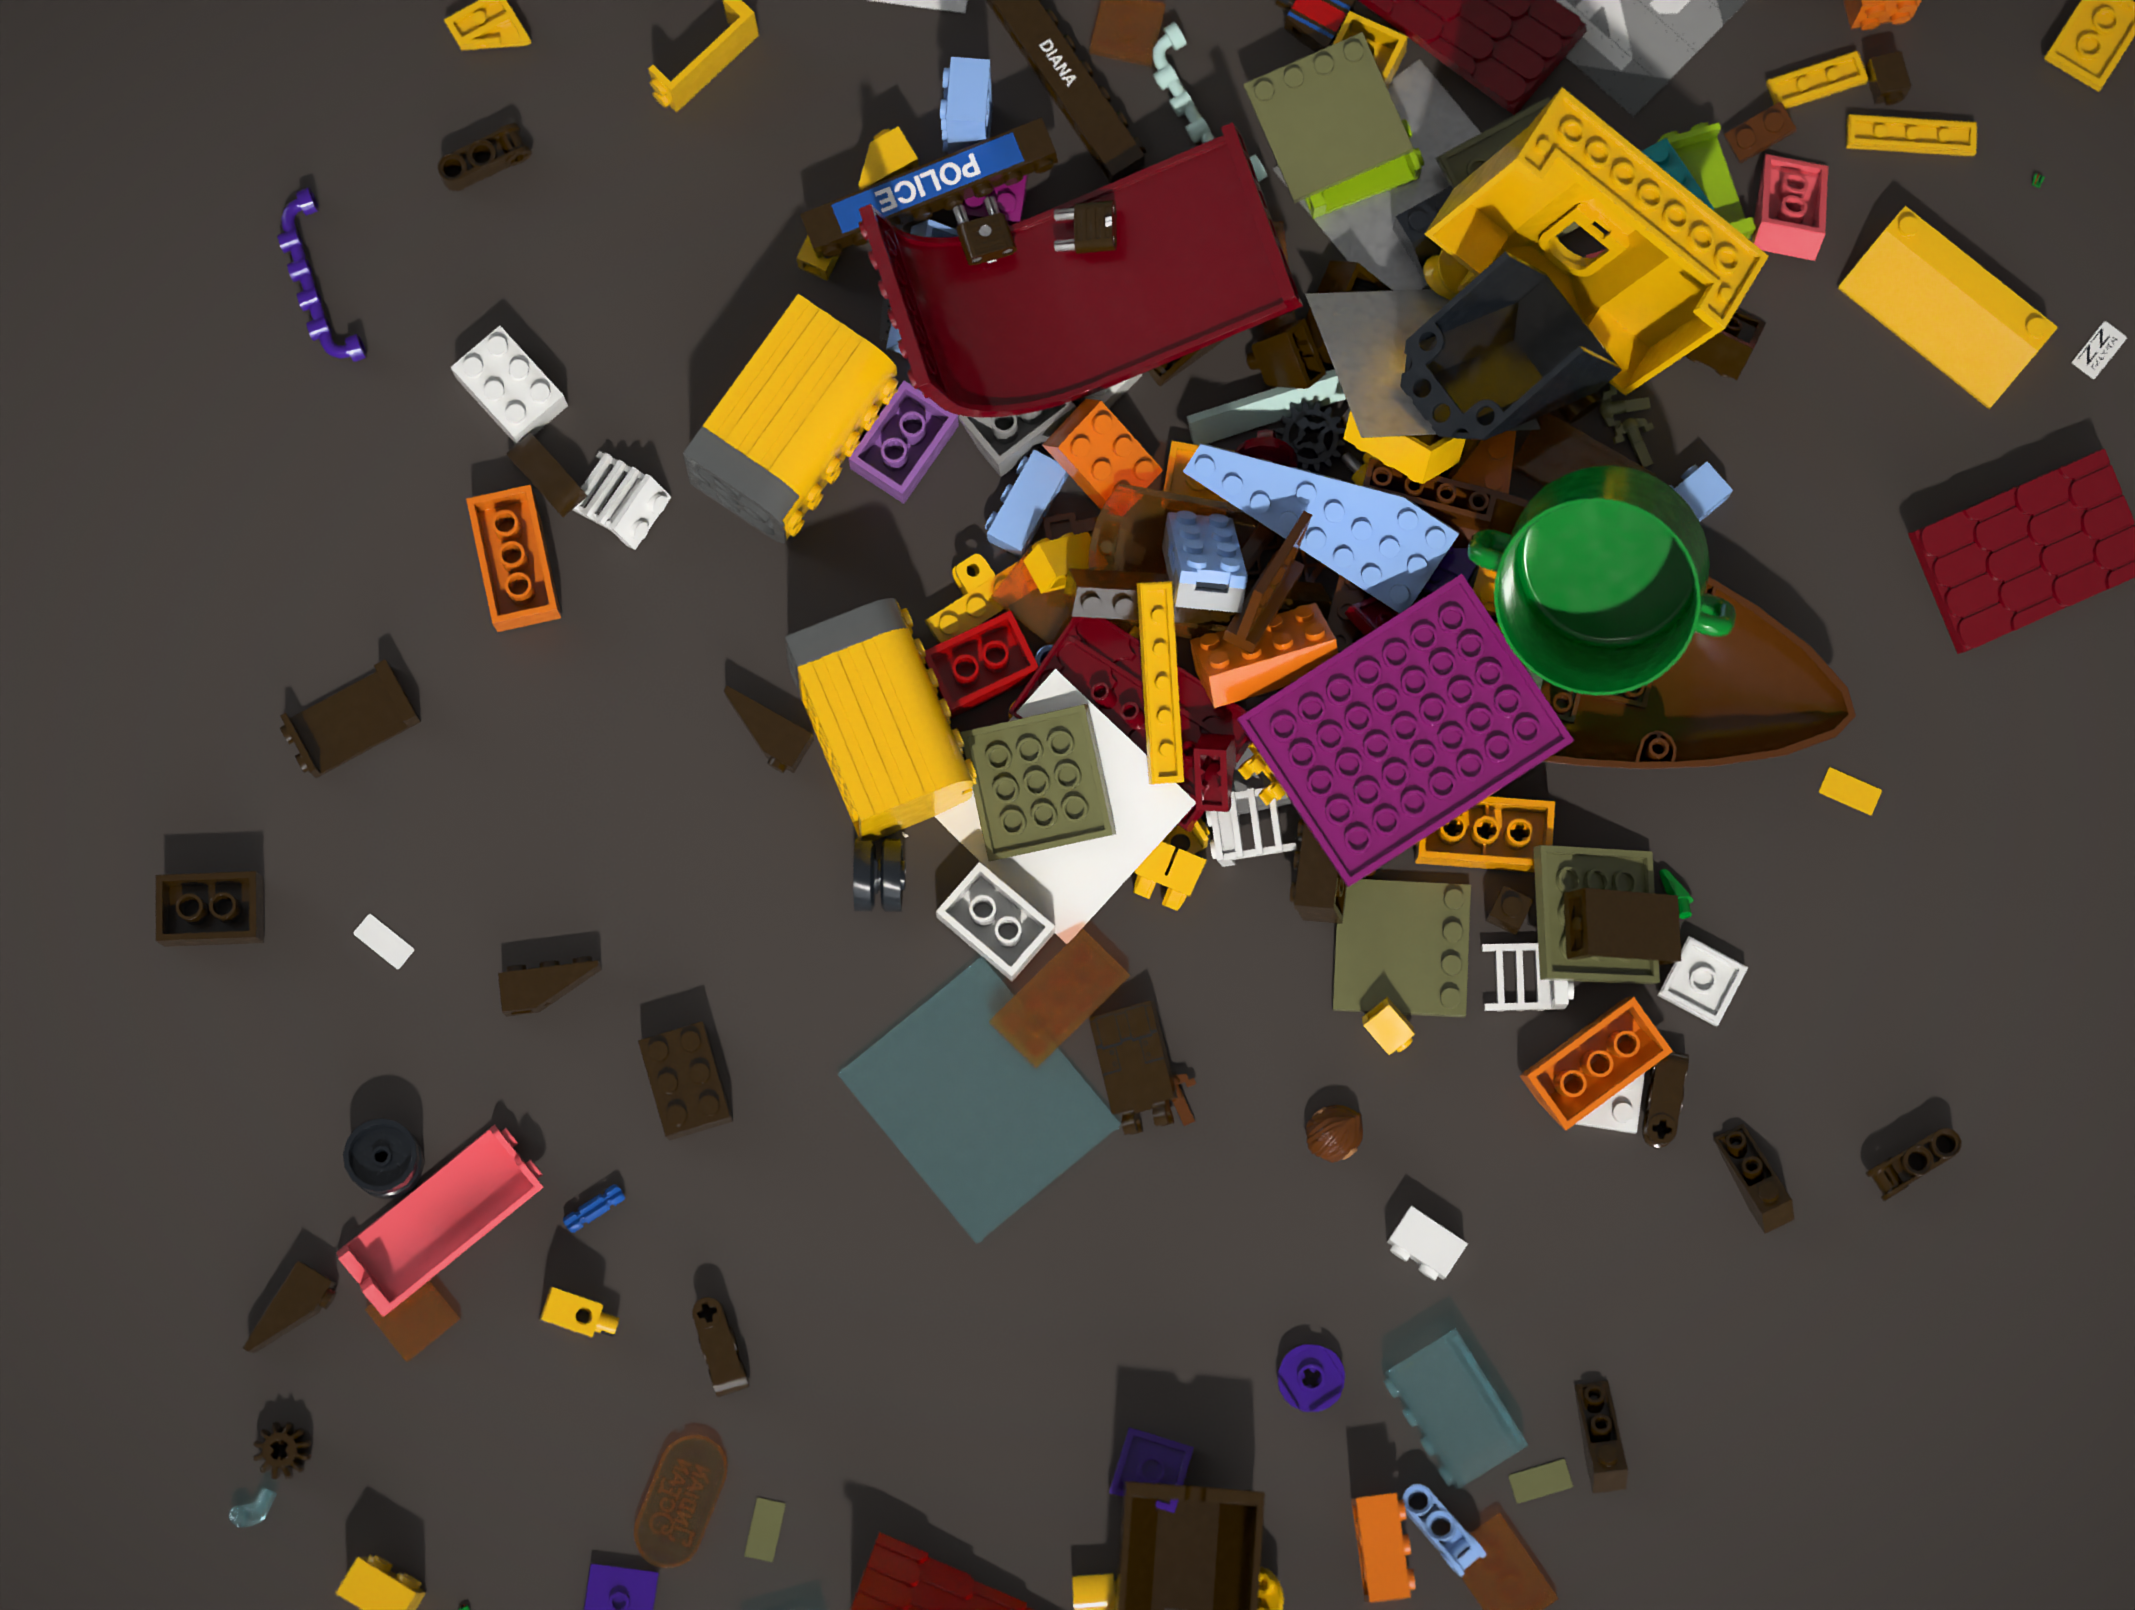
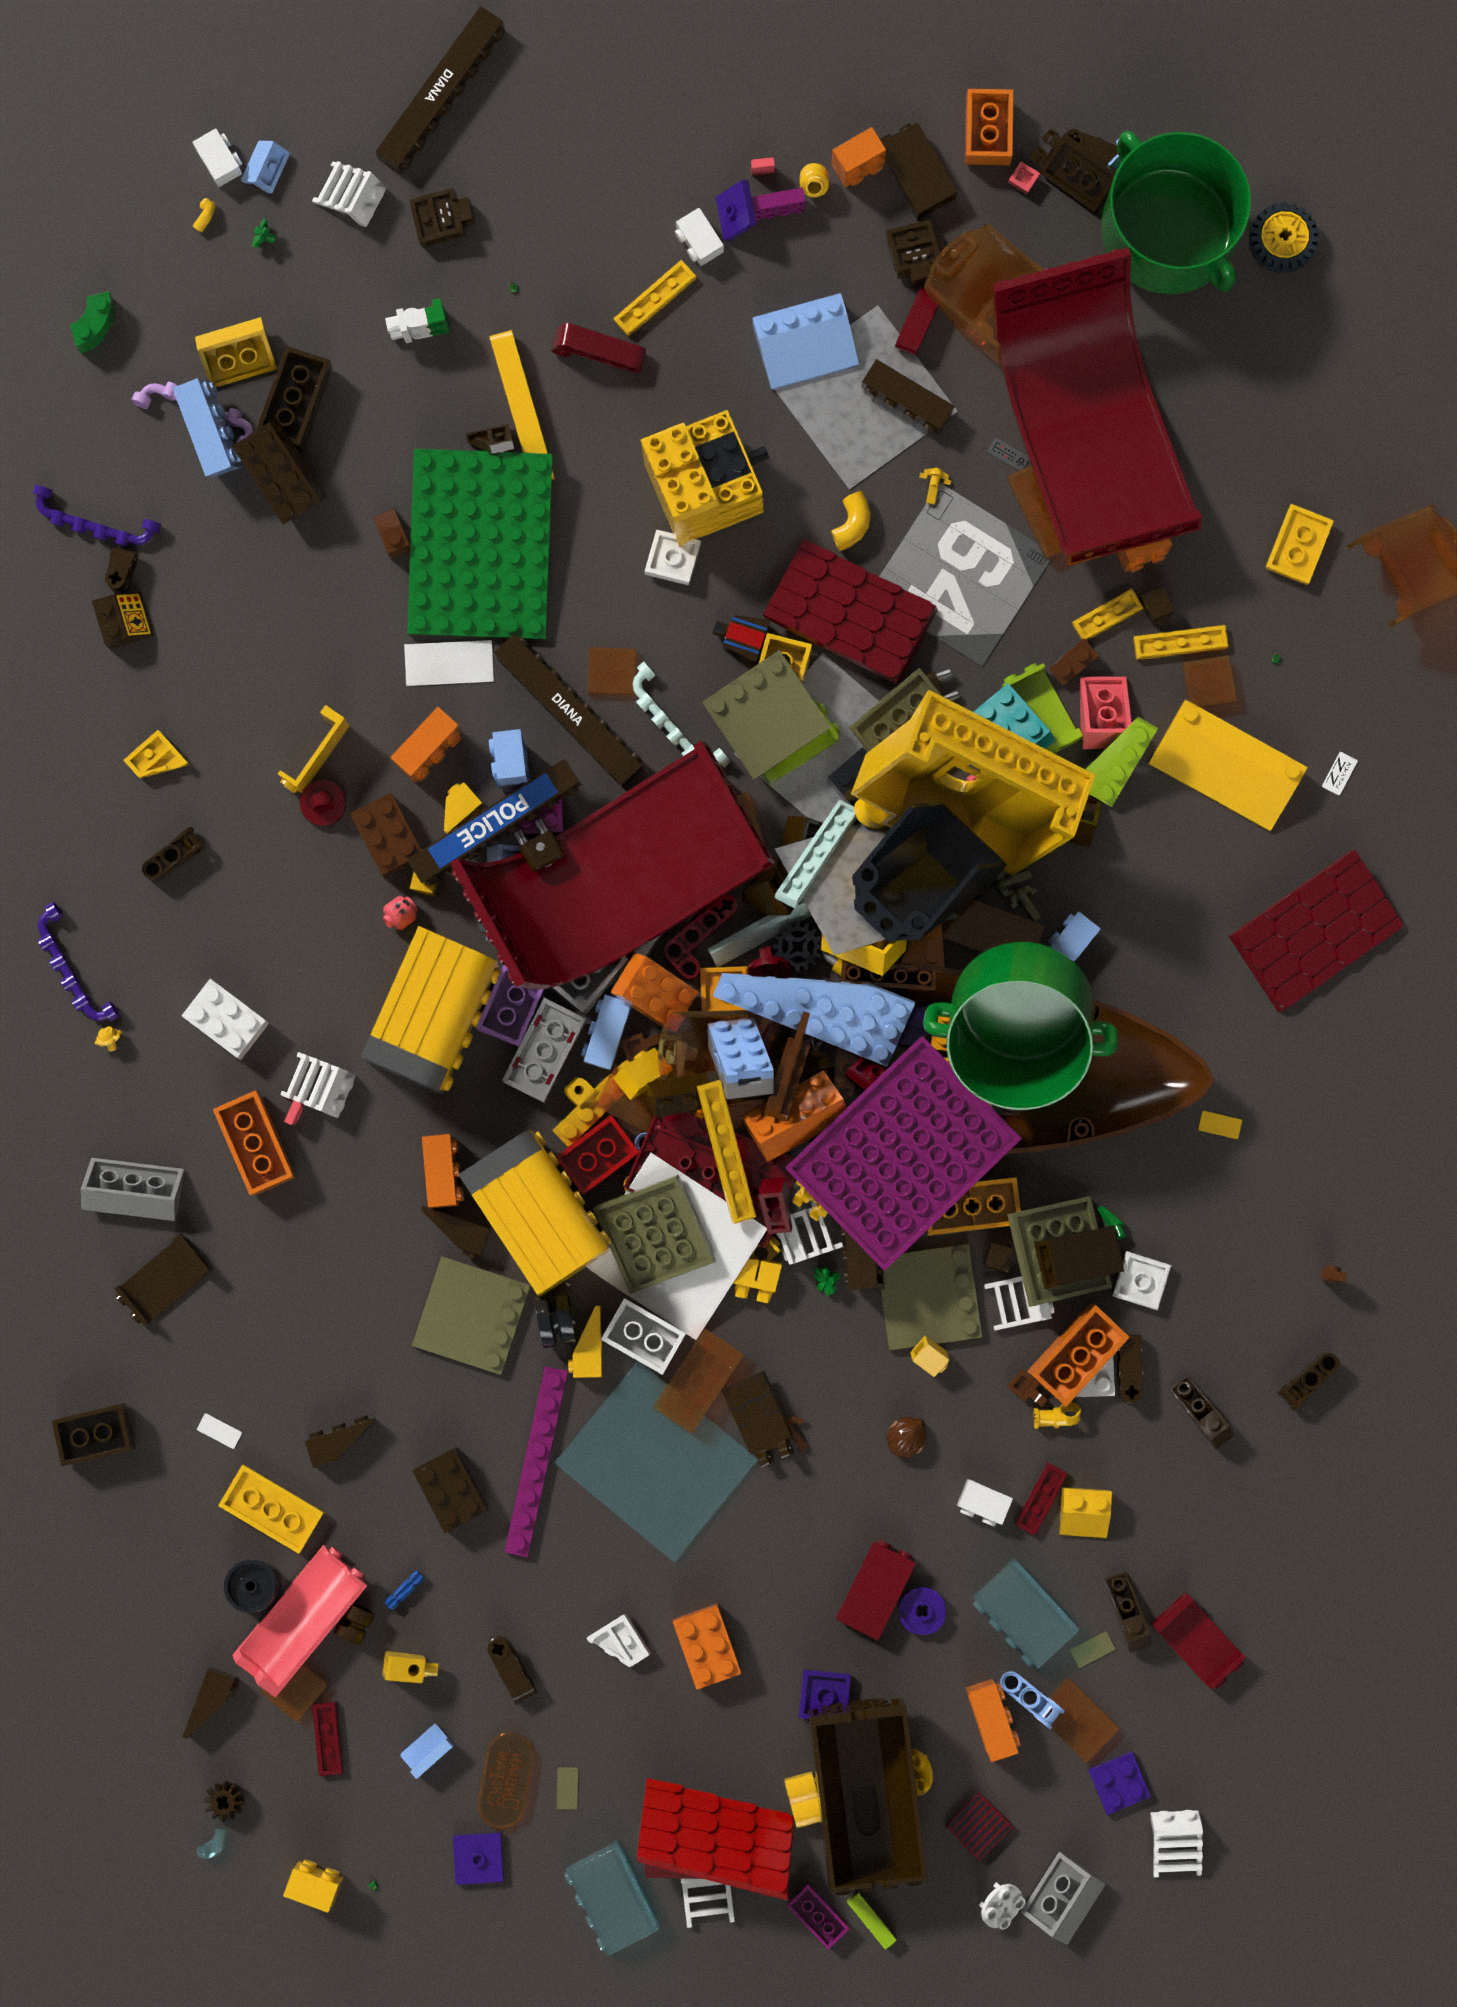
camera: 10 degrees left, 5 degrees up
(333, 590) = (132, 1189): none -> light grey slope
(345, 381) = (108, 1037): none -> yellow plant
(432, 1060) = (271, 1509): none -> yellow plate
(444, 1393) = (327, 1738): none -> dark red tile
(514, 1239) = (354, 1623): none -> dark brown wheel
(546, 474) = (265, 1078): dark brown beam -> none
(576, 530) = (294, 1113): none -> coral tile
(579, 1436) = (426, 1750): none -> light blue panel
(701, 128) = (322, 803): none -> dark red tile
(762, 643) = (442, 1171): none -> orange brick
(763, 850) = (471, 1315): none -> olive plate
(775, 290) = (399, 912): none -> coral head
(778, 182) = (386, 834): none -> reddish brown brick
(812, 1067) = (536, 1461): none -> magenta plate
(857, 74) = (427, 745): none -> orange brick
(881, 1337) = (621, 1640): none -> white wing
(914, 930) = (588, 1352): none -> yellow slope
(936, 510) = (544, 1050): none -> light grey piece
(999, 1367) = (707, 1646): none -> orange brick
(1093, 227) = (616, 830): dark brown piece -> none
(1186, 396) = (703, 932): none -> dark red beam
(1251, 1334) = (876, 1589): none -> dark red panel
(1263, 896) = (826, 1280): none -> green plant
(1361, 311) = (816, 854): none -> light aqua tile
(1506, 1256) = (1041, 1499): none -> dark red tile
(1513, 1095) = (1025, 1386): none -> reddish brown plate
(1551, 1144) = (1056, 1416): none -> yellow connector
(1565, 1285) = (1085, 1512): none -> yellow slope
(1692, 1498) = (1198, 1641): none -> dark red panel
(1797, 271) = (1119, 760): none -> lime wing
(1942, 192) = (1209, 681): none -> clear orange plate
(1972, 1021) = (1332, 1273): none -> reddish brown plate

